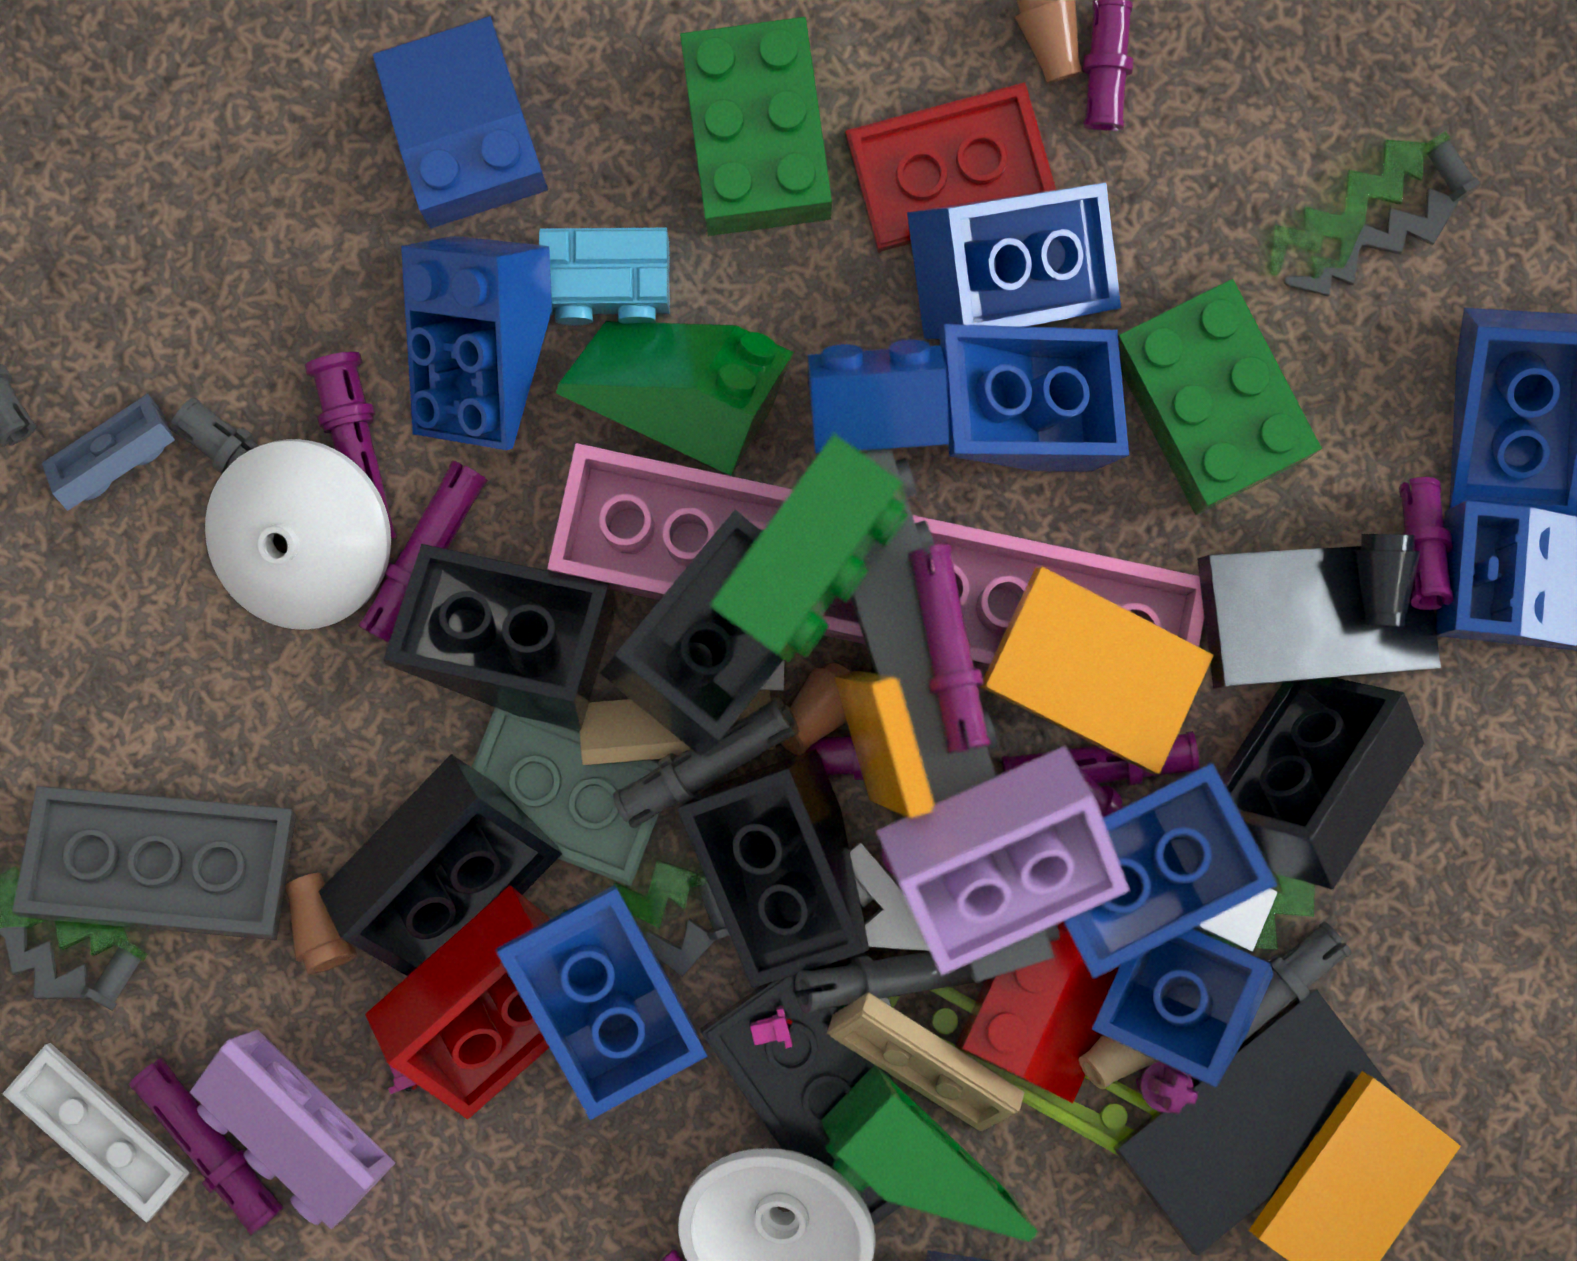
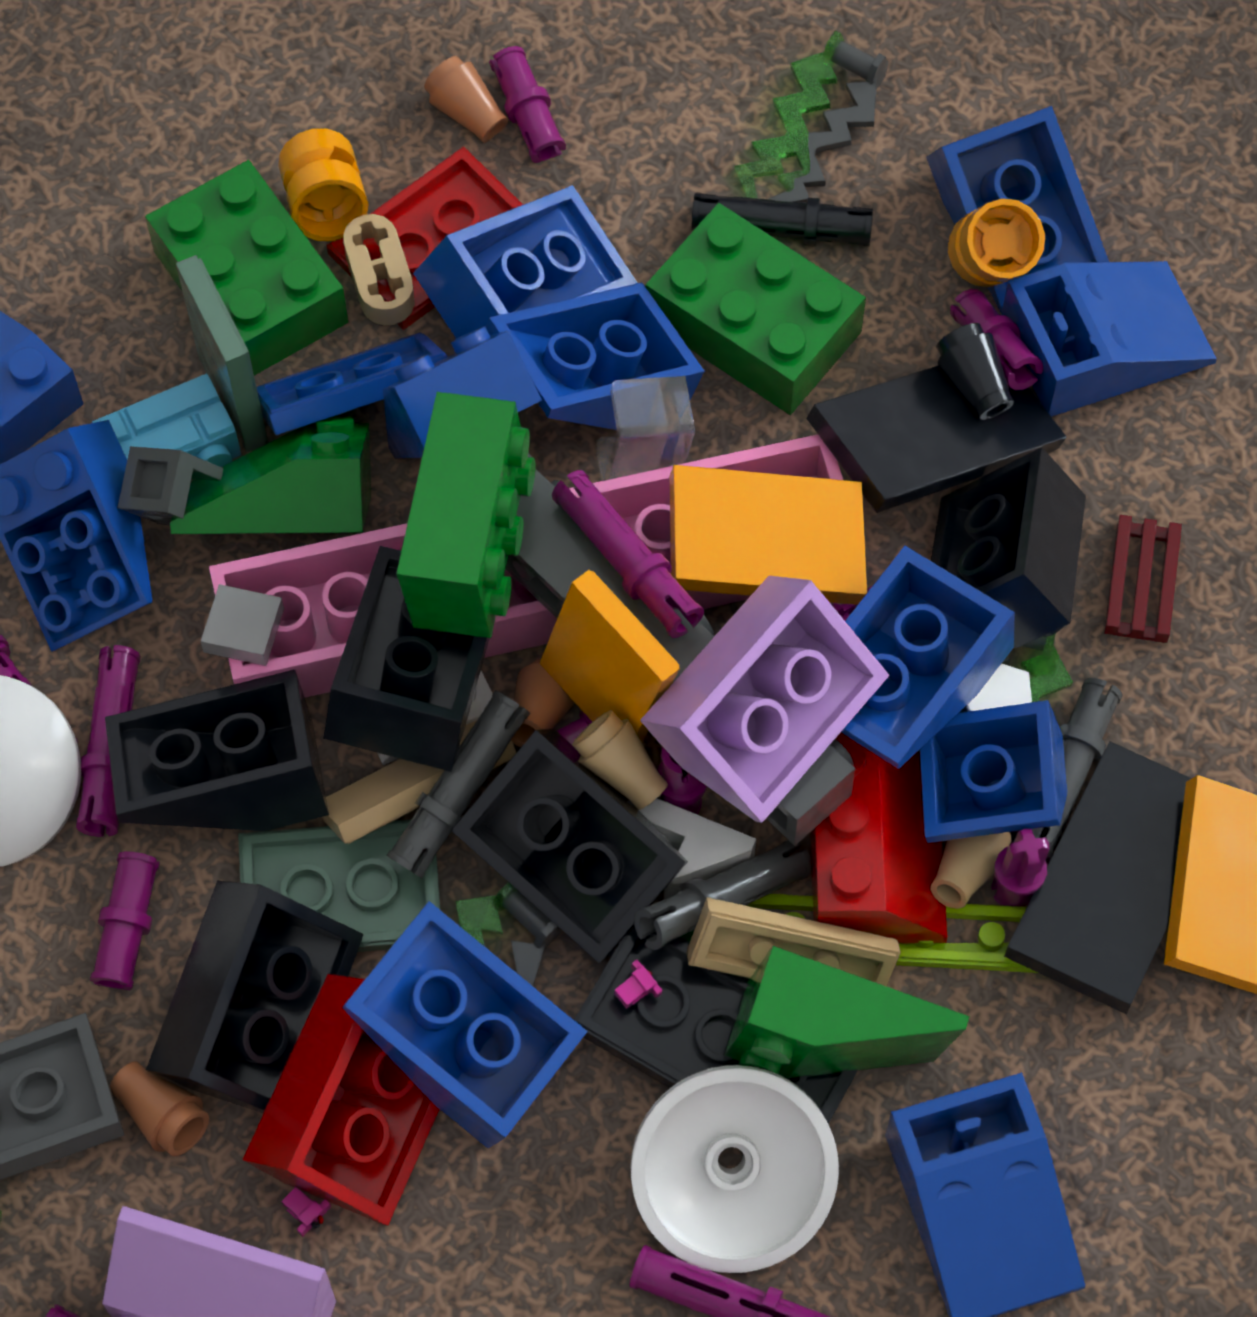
camera: 25 degrees left, 20 degrees down
(363, 735) = (125, 920): none -> magenta pin
(567, 337) = (159, 482): none -> dark grey panel
(577, 522) = (242, 625): none -> light grey tile
(683, 225) = (222, 352): none -> sand green tile
(795, 301) = (340, 383): none -> blue tile
(853, 815) = (618, 757): none -> tan cone
(867, 70) = (322, 183): none -> light orange wheel
(893, 188) = (390, 266): none -> tan beam
(1042, 496) = (651, 425): none -> clear panel
(1293, 309) = (794, 219): none -> black pin
(1466, 799) = (1148, 533): none -> dark red tile
(1476, 454) = (996, 243): none -> light orange wheel

